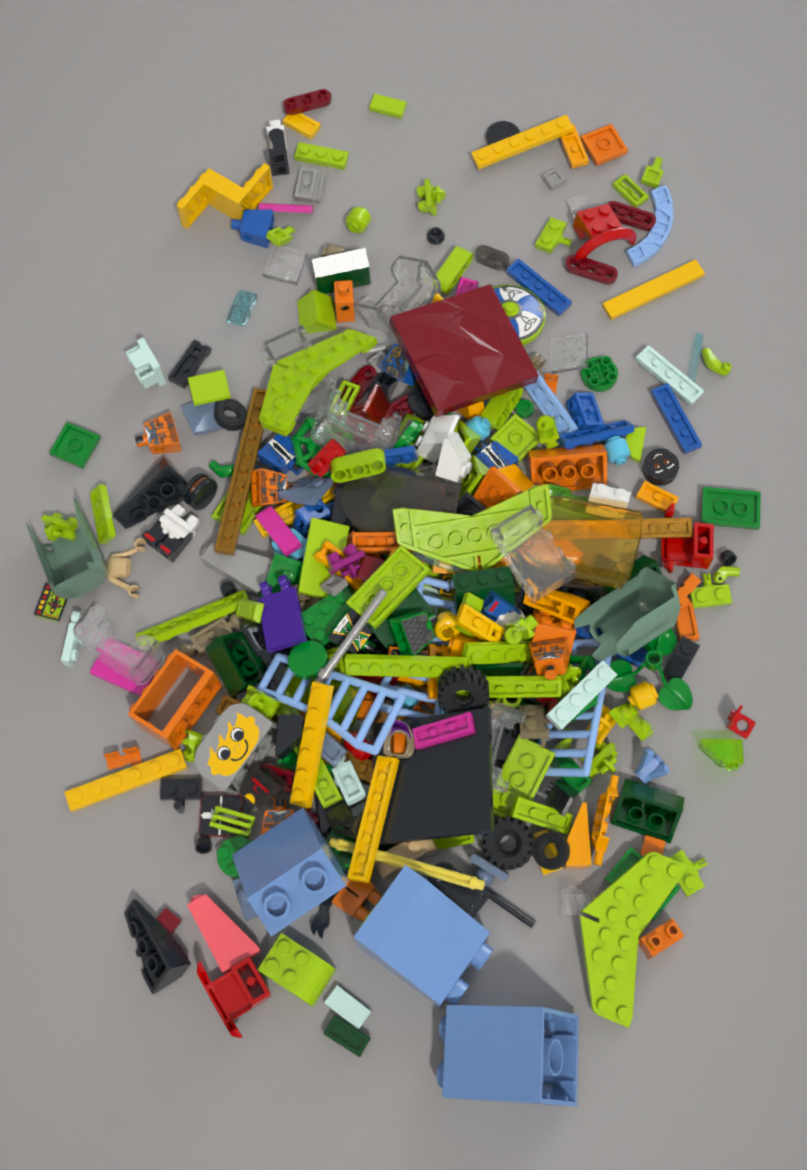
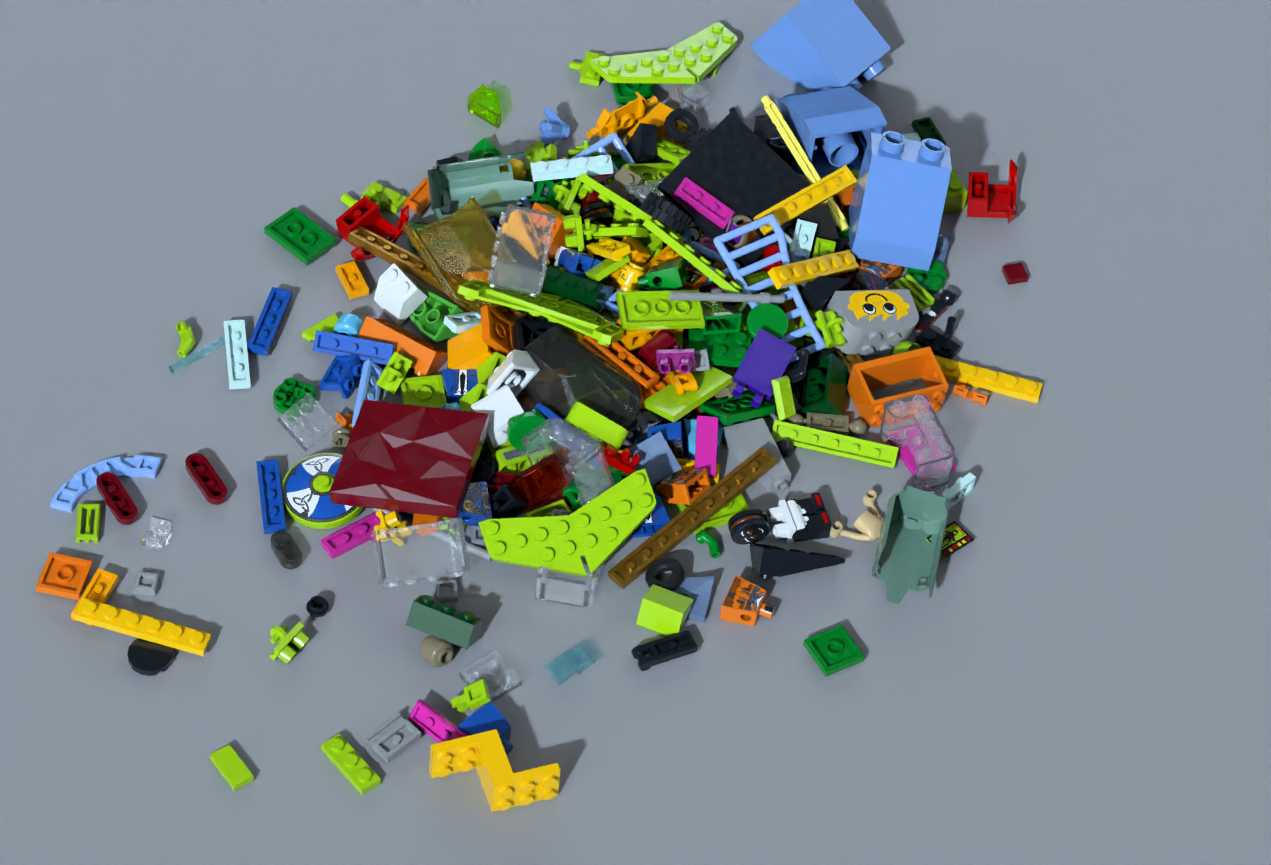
camera: 150 degrees left, 20 degrees down
(58, 527) = (904, 594): lime hips -> none
(102, 514) = (852, 574): lime plate -> none
(147, 367) = (712, 650): light aqua panel -> none
(160, 953) = (1036, 253): black wedge -> none
(222, 935) = (976, 236): coral slope -> none
(277, 149) = (394, 782): black hips -> none
(302, 125) = (339, 812): yellow tile -> none
(307, 102) = (320, 830): dark red plate -> none
(317, 312) = (504, 614): lime slope -> none
(344, 297) = (469, 593): orange torso -> none
(358, 220) = (379, 667): lime head -> none
(454, 268) = (335, 563): lime beam -> none
(550, 657) = (572, 197): orange torso -> none
(552, 236) = (207, 533): lime plate -> none
(601, 227) = (164, 491): red piece -> none
(647, 810) = (576, 107): dark green slope -> none
(652, 845) = (600, 94): orange tile -> none
(653, 174) = (52, 517): lime plate -> none
(653, 289) = (168, 429): yellow tile -> none
(660, 467) = (324, 297): black head -> none
(660, 938) = (644, 37): orange hips -> none
(691, 583) = (398, 207): orange piece -> none
(731, 557) = (340, 208): black hinge -> none
(736, 716) = (454, 115): red bracket -> none

